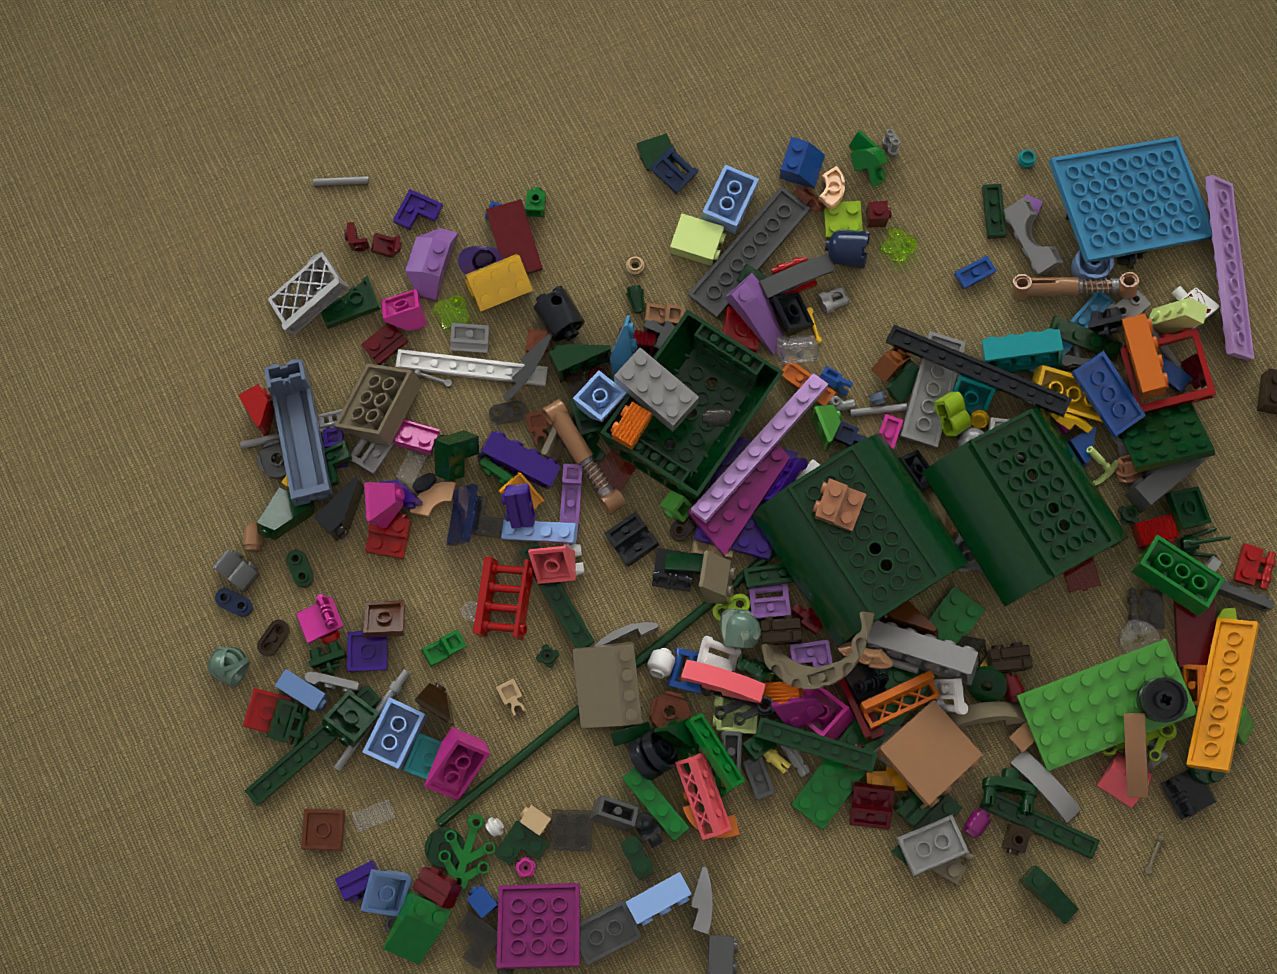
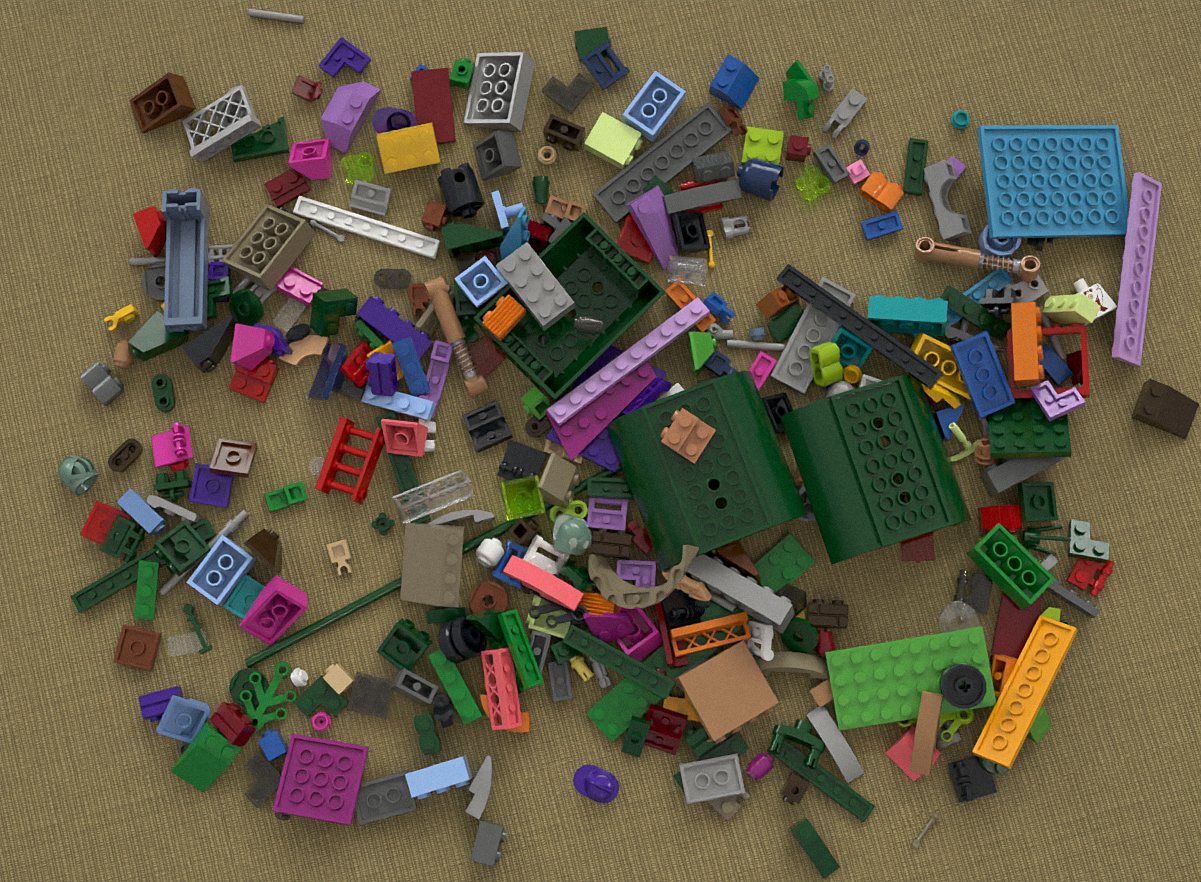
camera: 15 degrees right, 5 degrees up
(233, 602) = (94, 412): dark blue plate -> none
(244, 284) = (162, 102): none -> reddish brown slope
(245, 499) = (123, 315): none -> yellow plate
(321, 768) = (146, 589): none -> green plate
(352, 238) = (275, 75): dark red bracket -> none
(367, 780) = (188, 609): none -> dark green piece
(368, 466) = (246, 307): none -> dark green tile
(490, 502) = (355, 365): none -> red plate
(531, 363) = (423, 234): dark grey slope -> none
(545, 493) = (411, 366): none -> blue plate
(575, 212) = (499, 90): none -> light grey slope
(586, 274) = (497, 155): none -> dark grey slope
(595, 772) = (404, 645): none -> dark green plate
(597, 618) = (435, 498): none -> clear fence
(606, 327) = (505, 213): none -> light blue tile
(644, 205) = (569, 96): none -> clear smoke plate
(648, 240) = (564, 133): none -> dark brown brick
(683, 562) = (530, 459): dark green slope -> none
(683, 601) = (522, 497): none -> clear neon green slope
(692, 634) = (524, 531): none -> dark brown brick
(800, 246) = (713, 167): none -> dark grey brick
(816, 874) = (596, 783): none -> dark purple piece
(834, 188) = (760, 114): light nougat tile -> none
(847, 818) = (636, 736): none -> dark green plate
(913, 223) = (831, 164): none -> dark grey plate
(915, 171) = (845, 112): none -> light grey hinge
(939, 226) = (858, 172): none -> bright pink tile
(942, 203) = (865, 150): none -> dark blue hinge
(967, 240) = (881, 192): none -> orange brick
(1132, 510) = (979, 501): dark green plate -> none
(1185, 409) = (1055, 404): none -> medium lavender plate
(1241, 542) = (1082, 546): none -> plate

